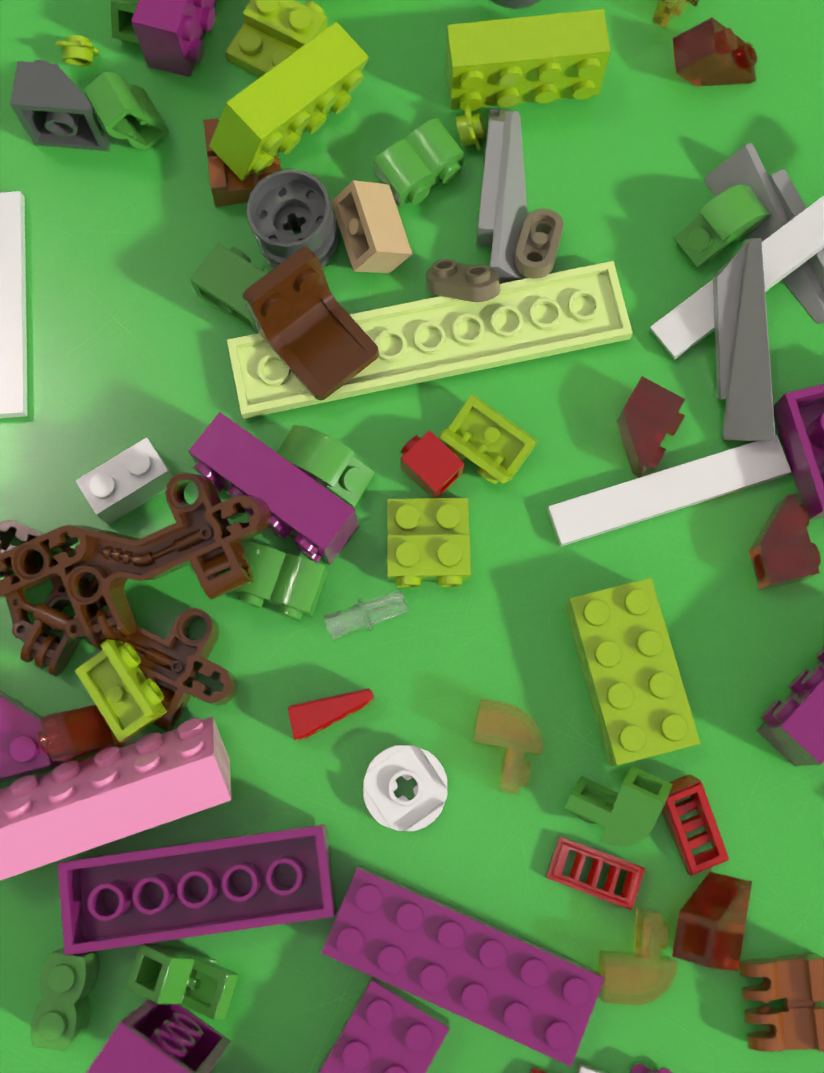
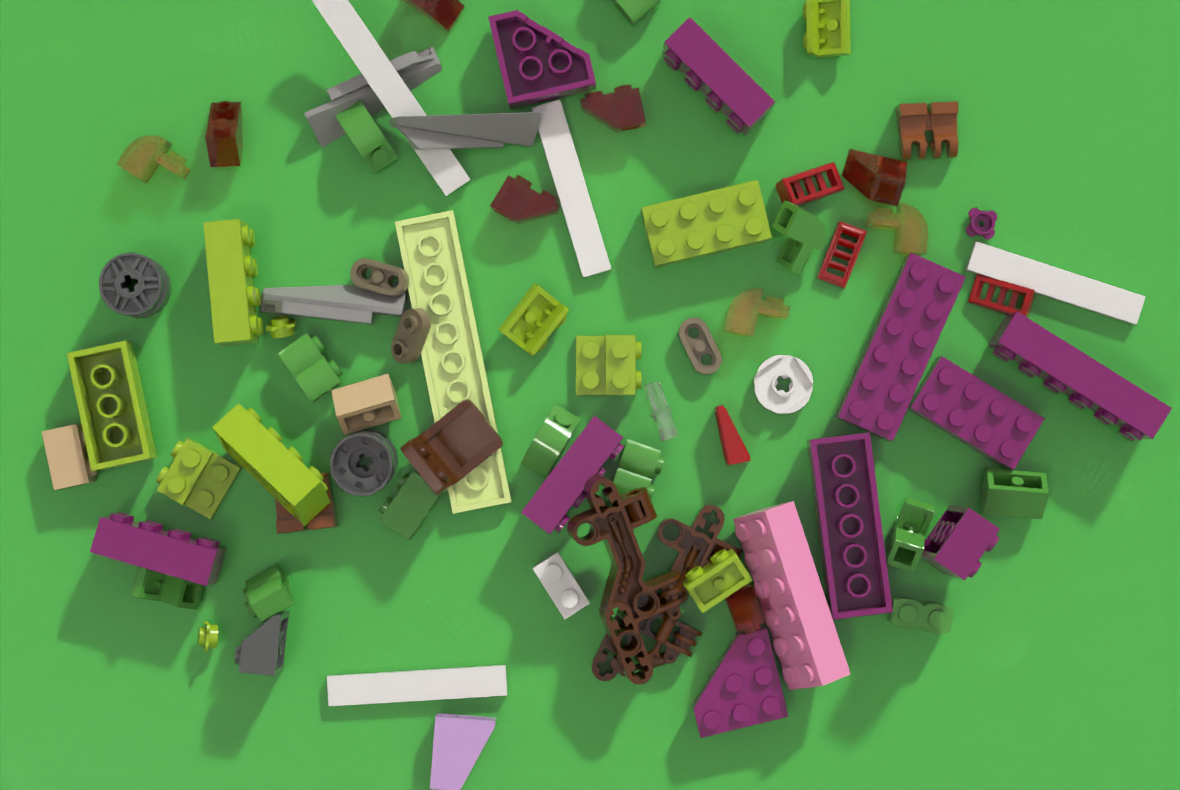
camera: 90 degrees left, 10 degrees up
(430, 464) = (550, 362): red brick -> none
(457, 668) = (699, 346): none -> dark tan plate

